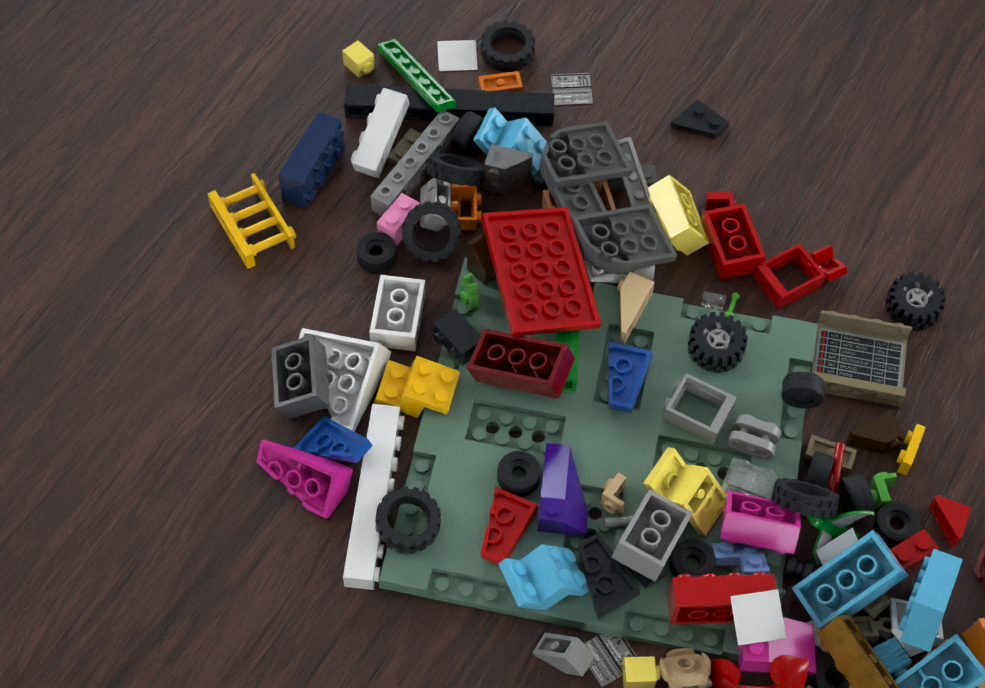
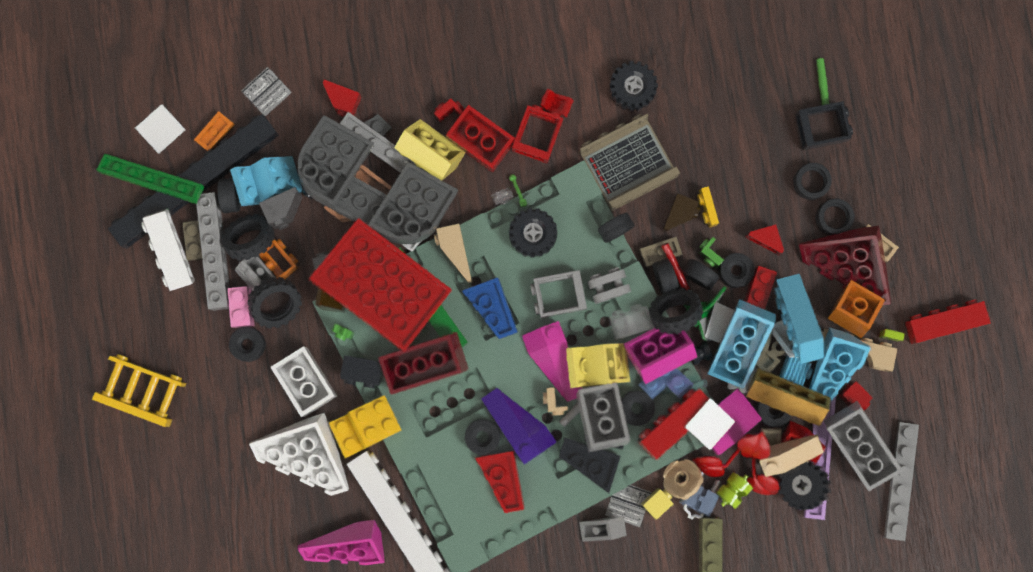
camera: 40 degrees left, 25 degrees up
(300, 377) = (283, 484): dark grey brick -> none
(311, 160) = (140, 311): dark blue brick -> none
(334, 442) = (344, 510): blue wing -> none
(358, 59) = (94, 194): light yellow brick -> none
(408, 543) = (454, 543): black tyre -> none
(511, 30) = (179, 77): black tyre -> none
(543, 577) = (557, 499): medium azure bracket -> none
(635, 128) = (342, 98): none -> red slope
(644, 447) = (548, 350): none -> dark pink wedge
(701, 120) = (379, 46): black wing -> none

